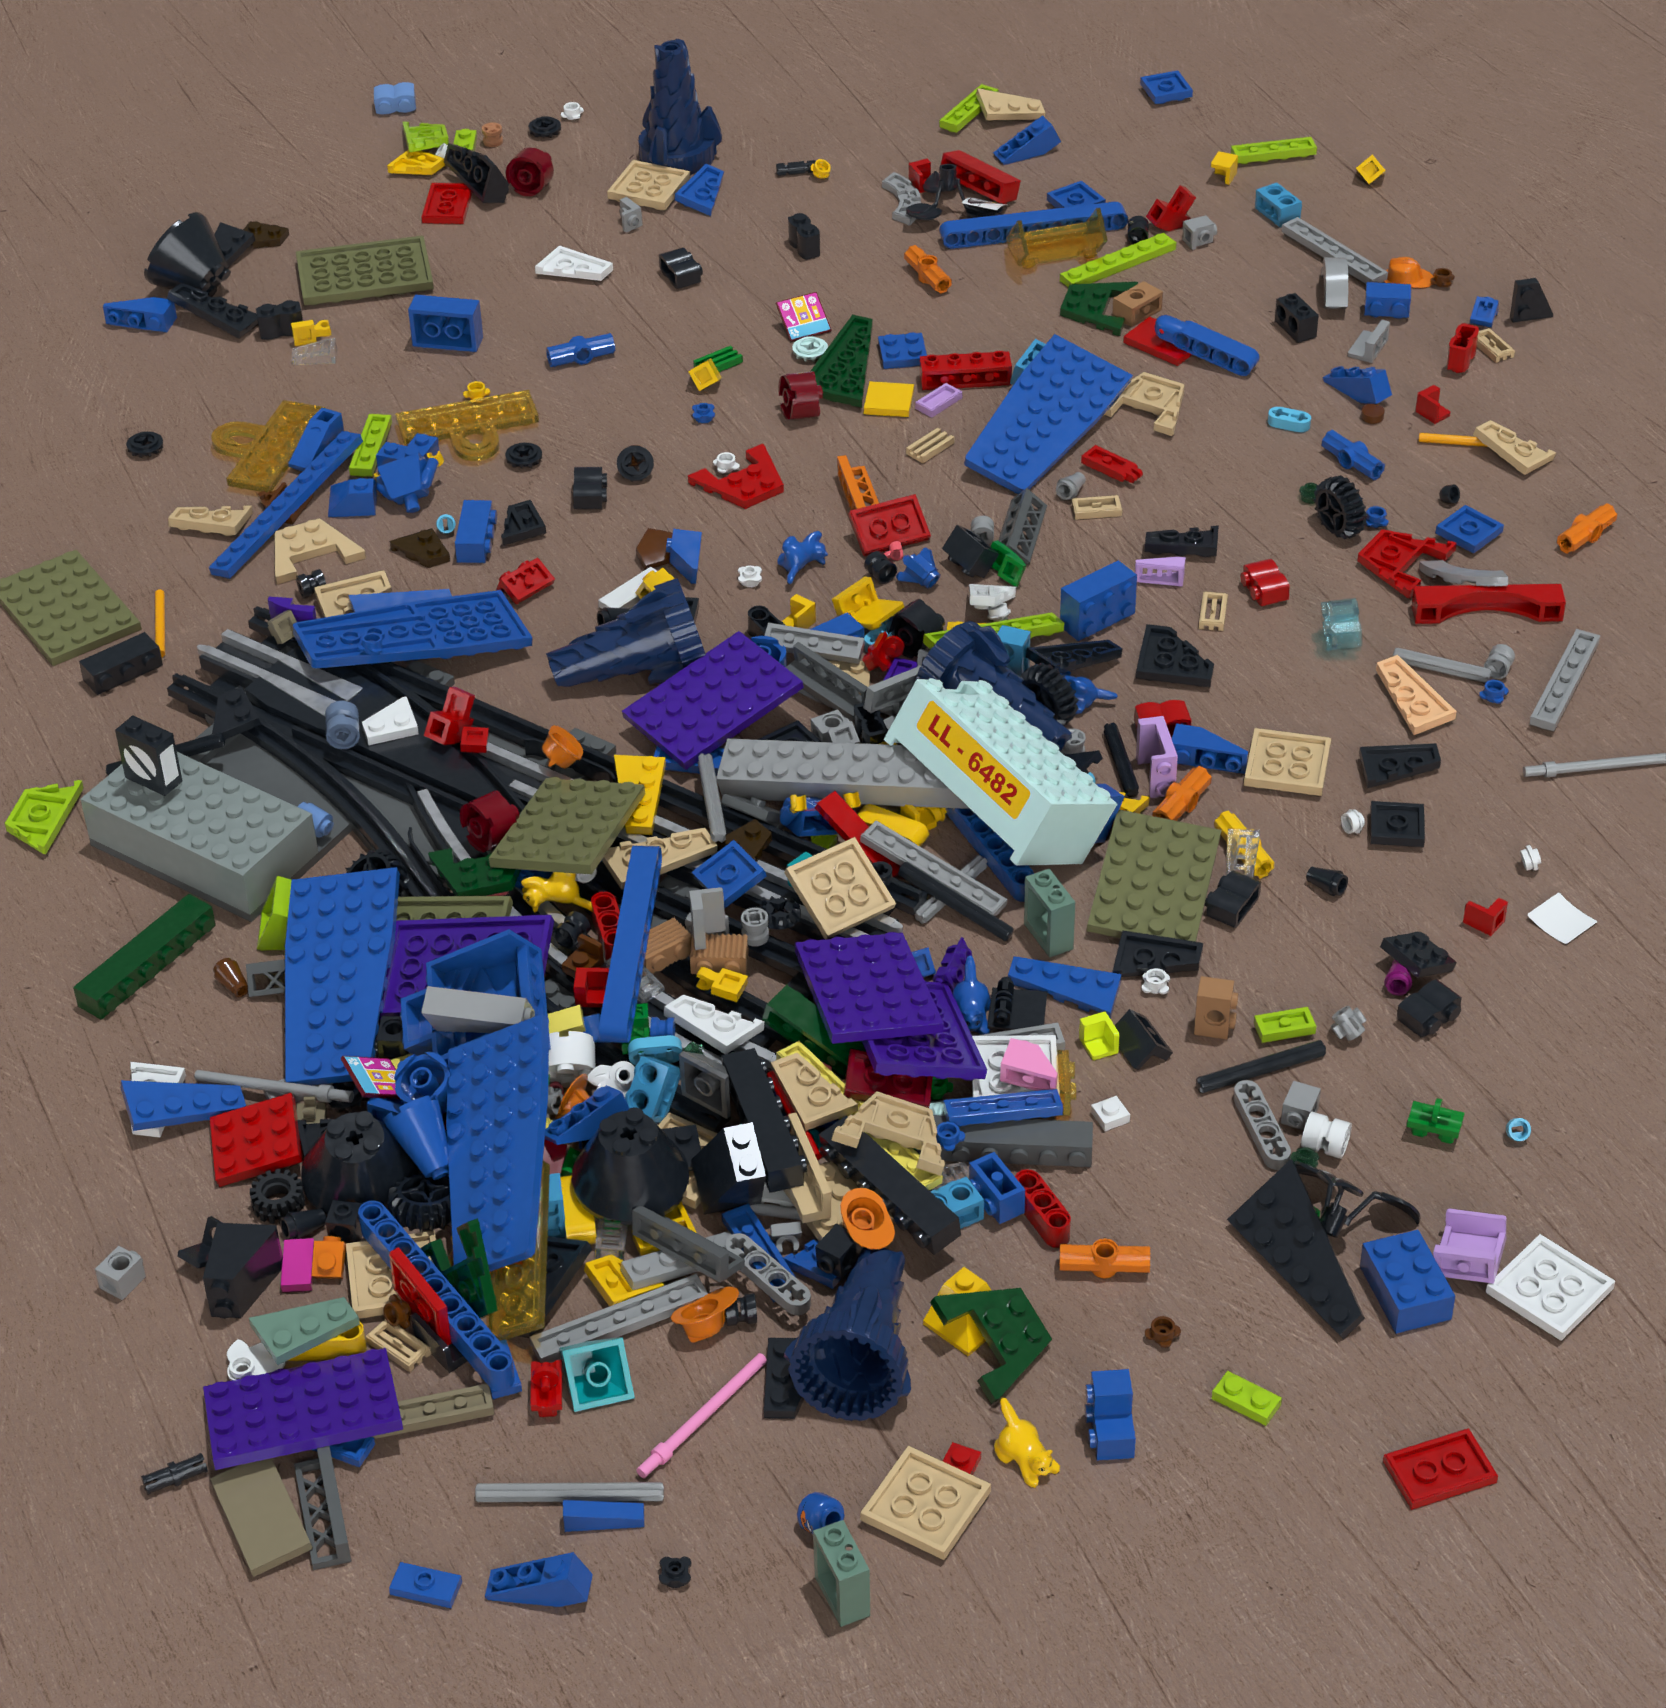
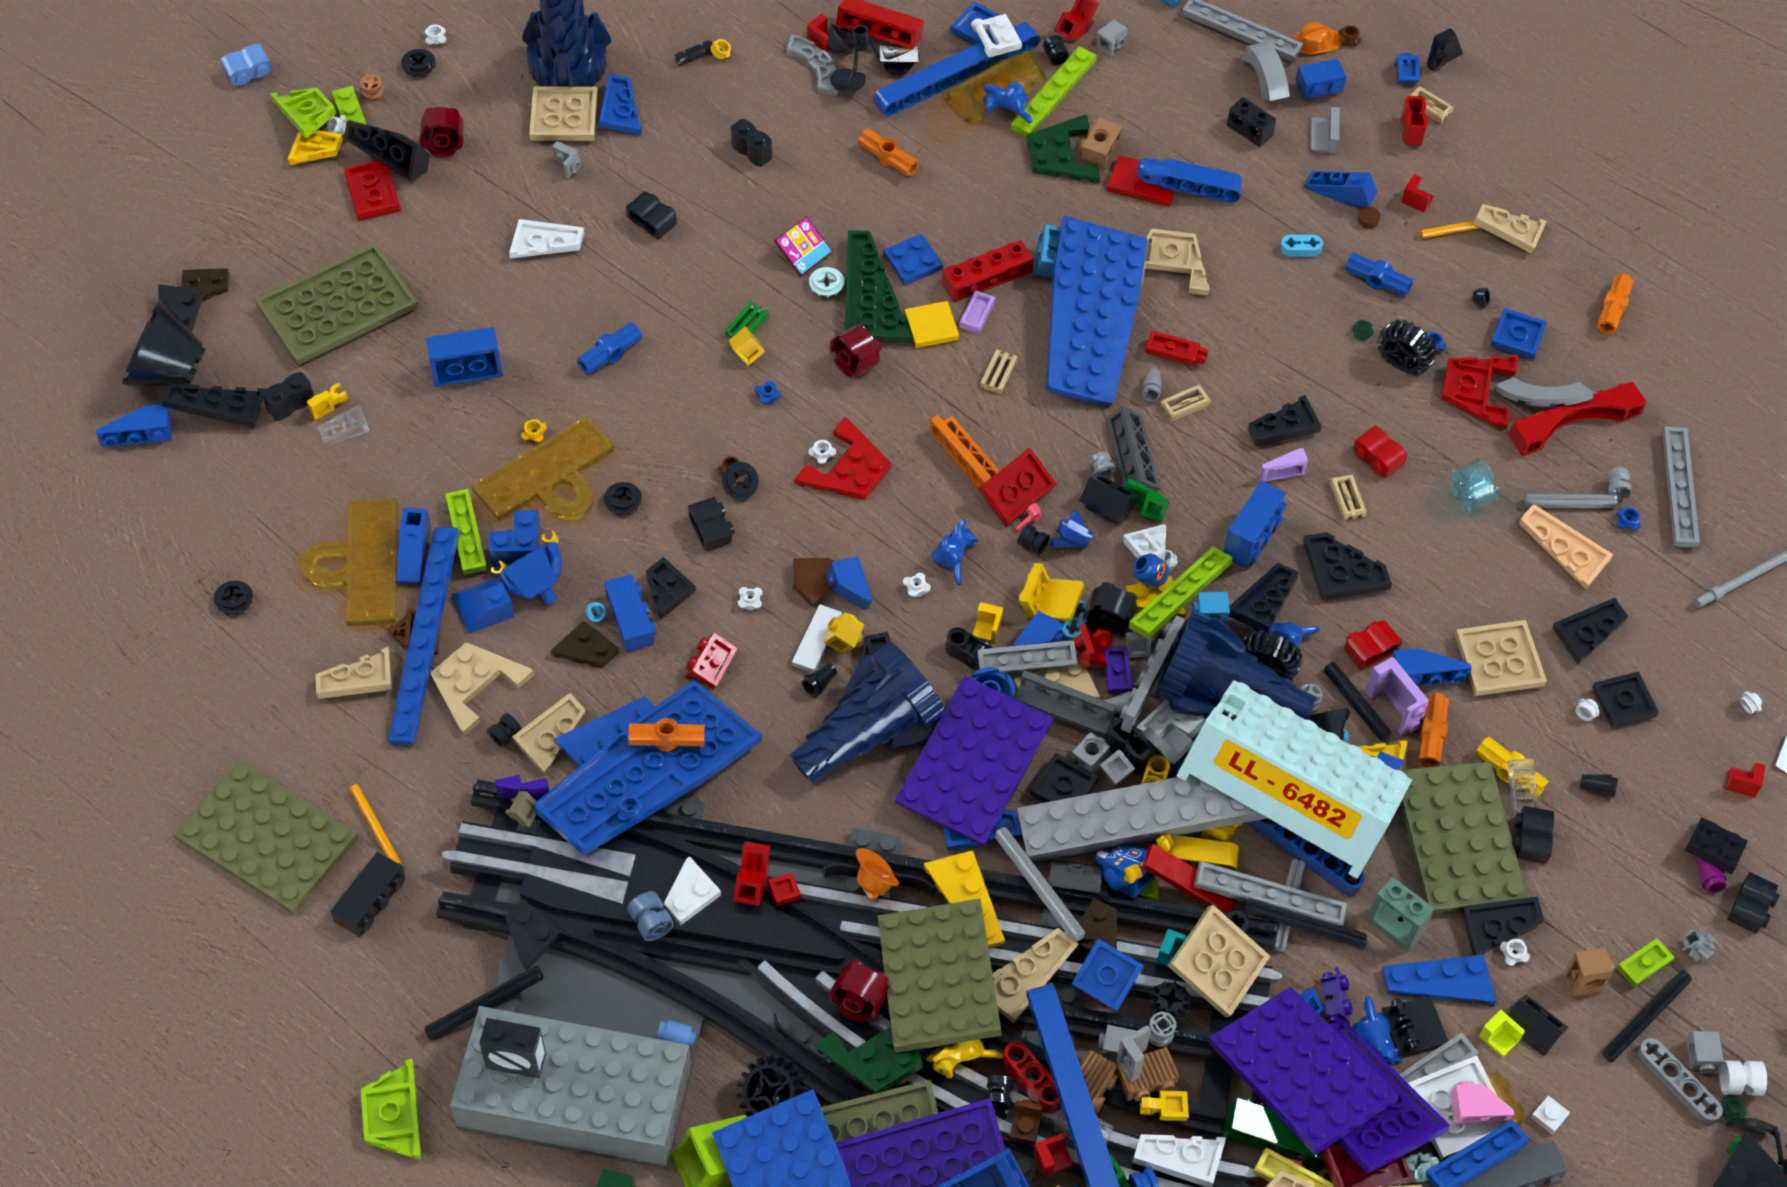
camera: 25 degrees left, 15 degrees up
(442, 608) = (666, 734): none -> orange piece
(591, 549) = (750, 604): none -> white plate
(972, 606) = (1151, 571): none -> blue head
(1064, 251) = (1012, 99): none -> blue animal
(1088, 199) = (1002, 33): none -> white plate

